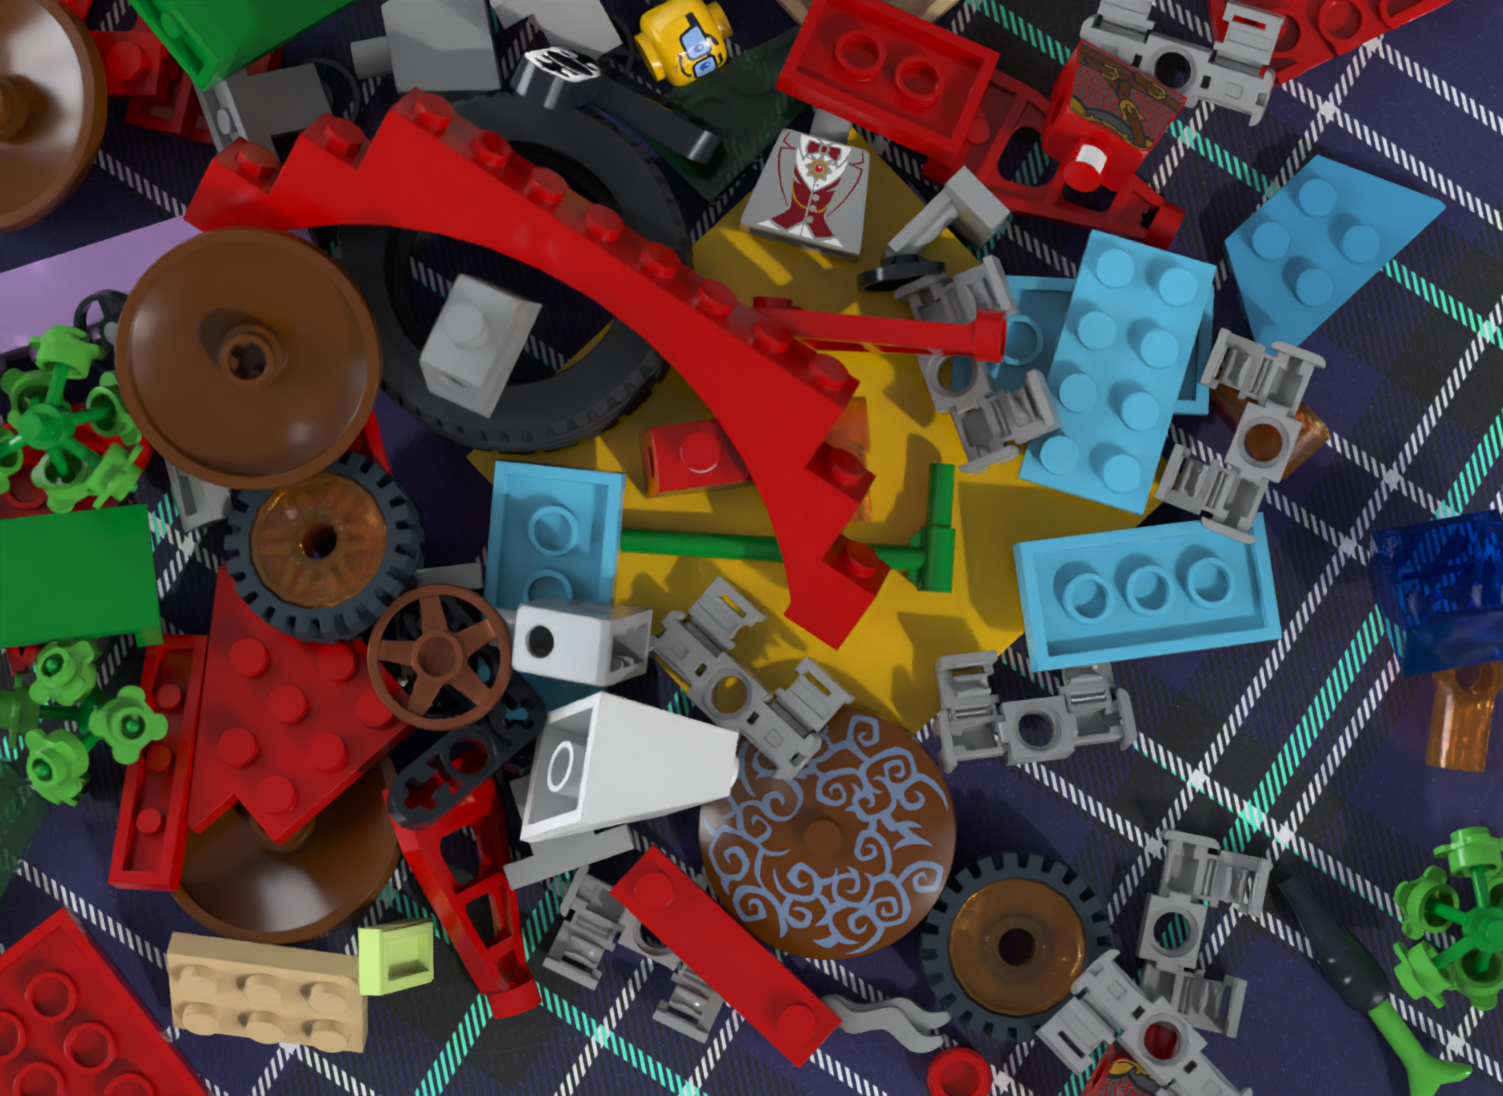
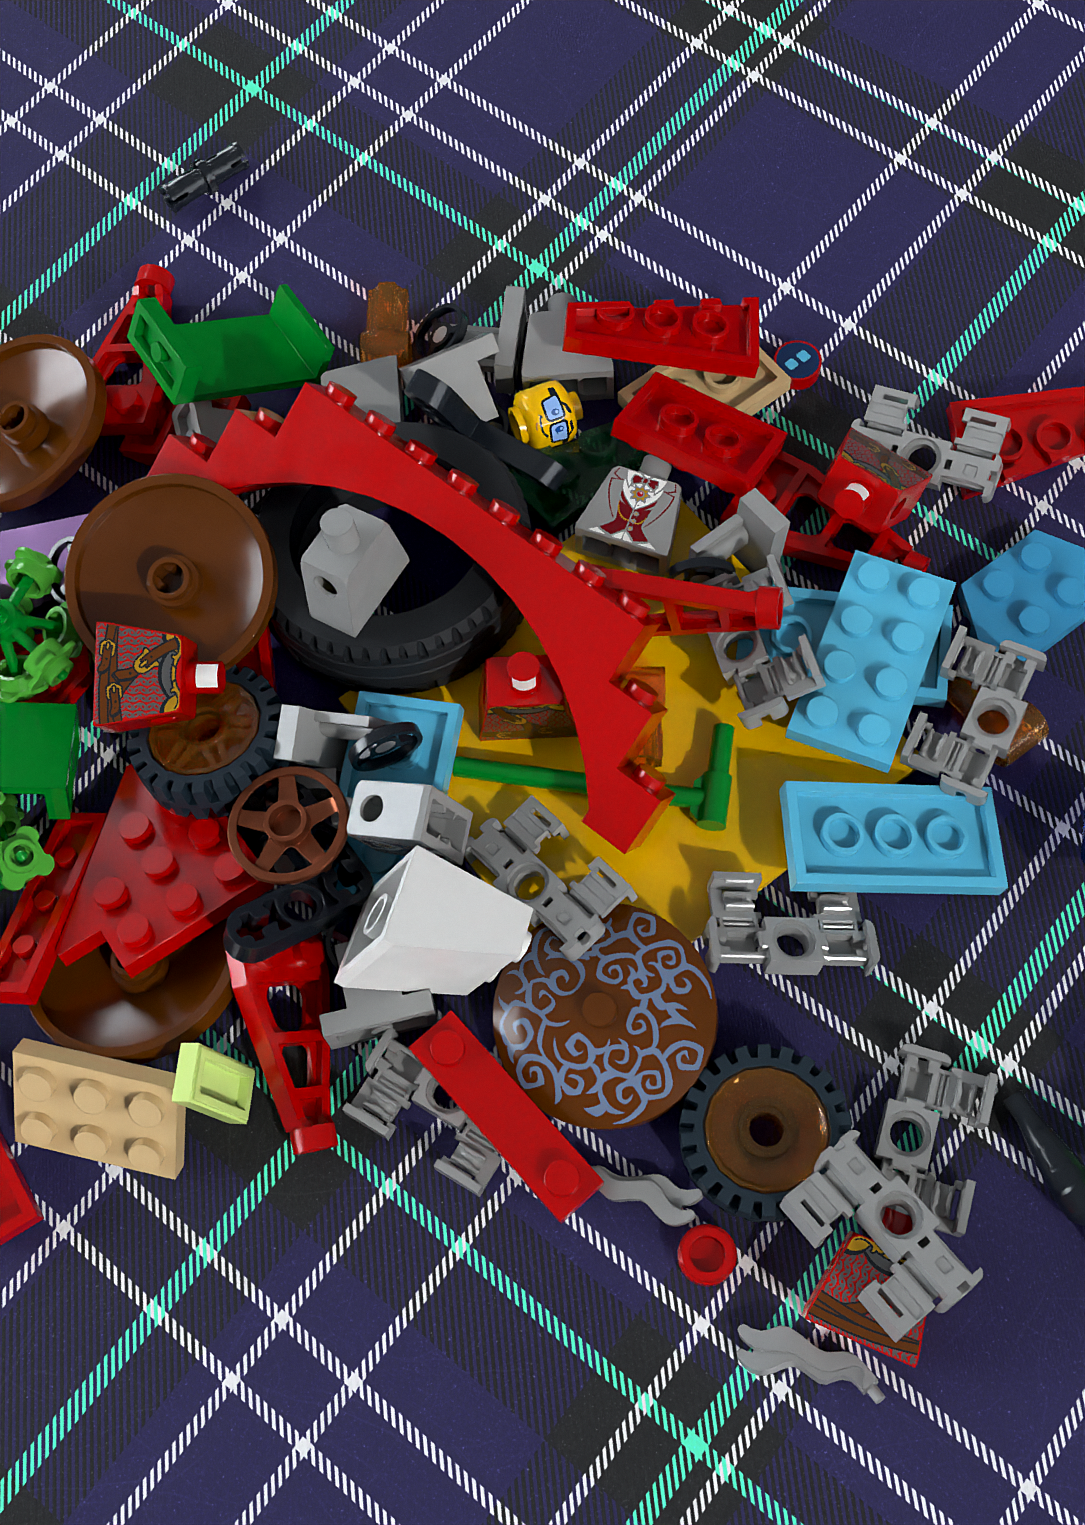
camera: 10 degrees right, 20 degrees down
(247, 495) = (148, 678): none -> torso
(459, 530) = (322, 739): none -> light grey piece

